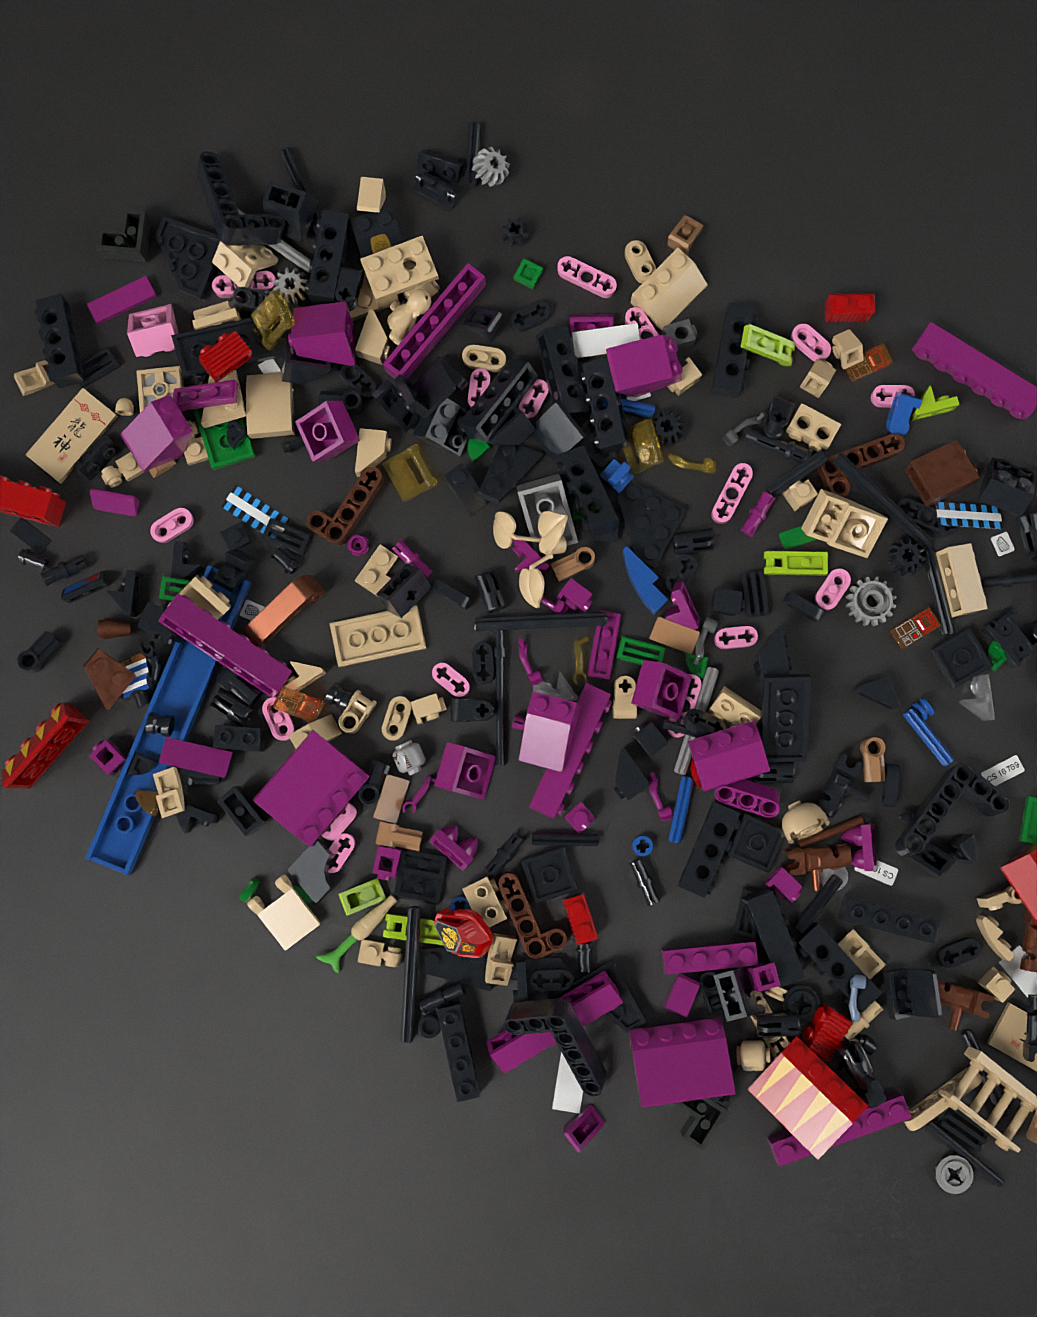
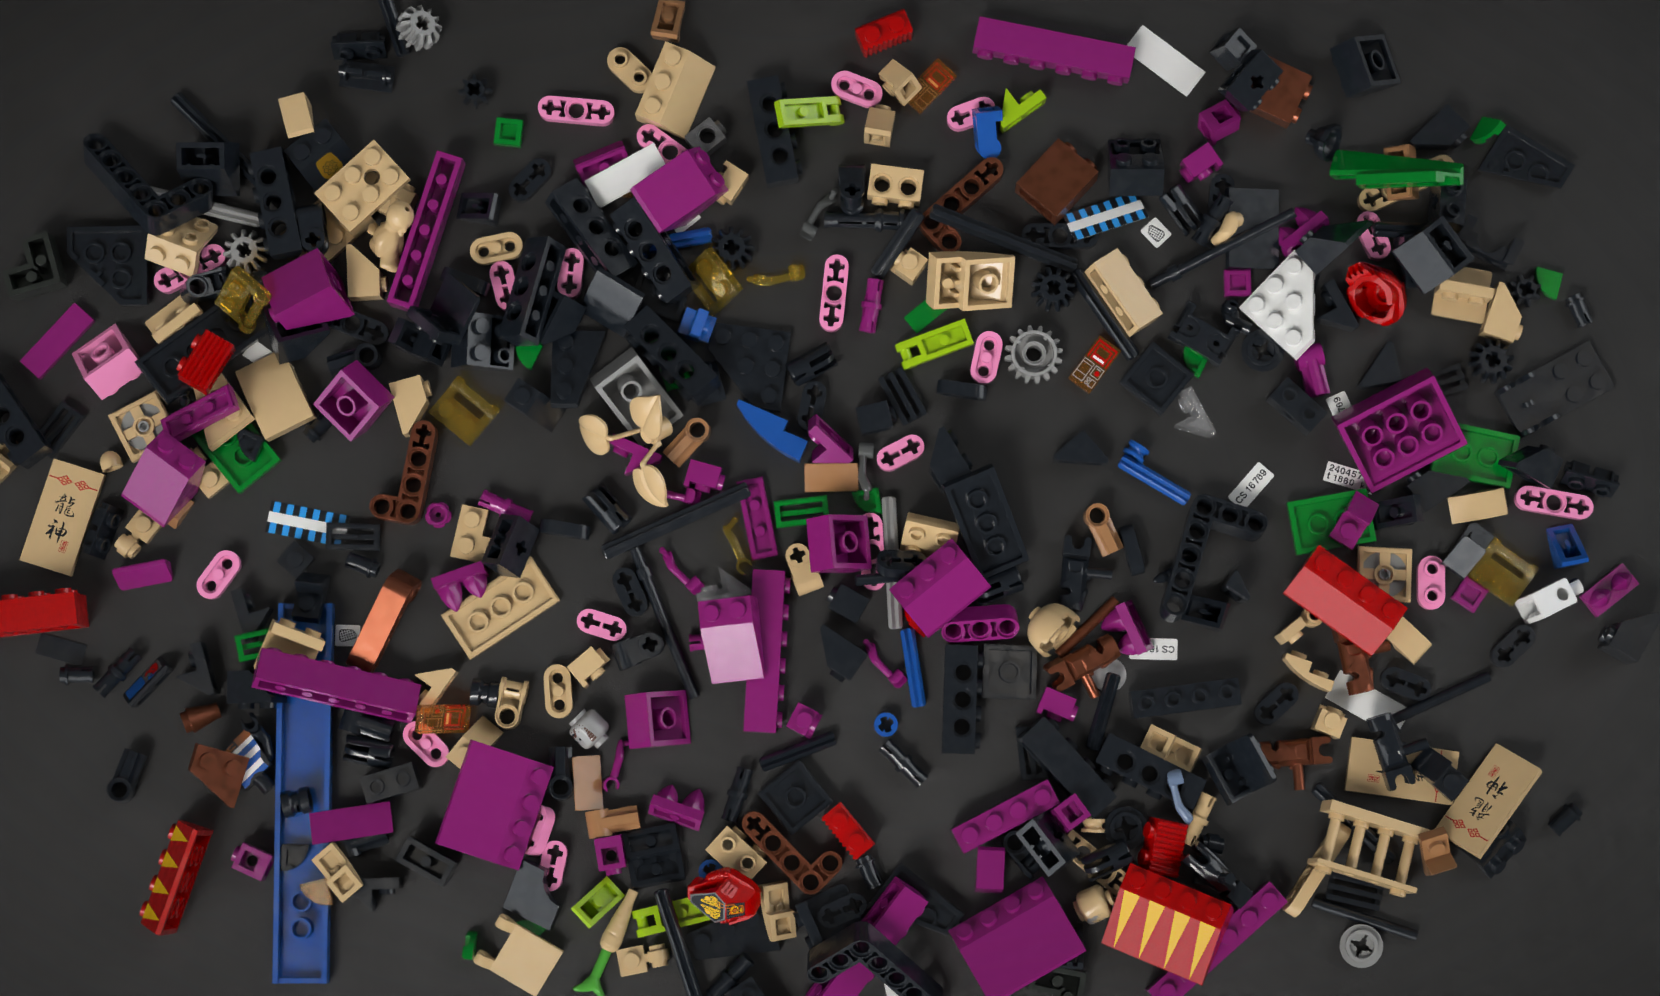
camera: 25 degrees left, 0 degrees up
(346, 602) = (449, 584): none -> magenta tile

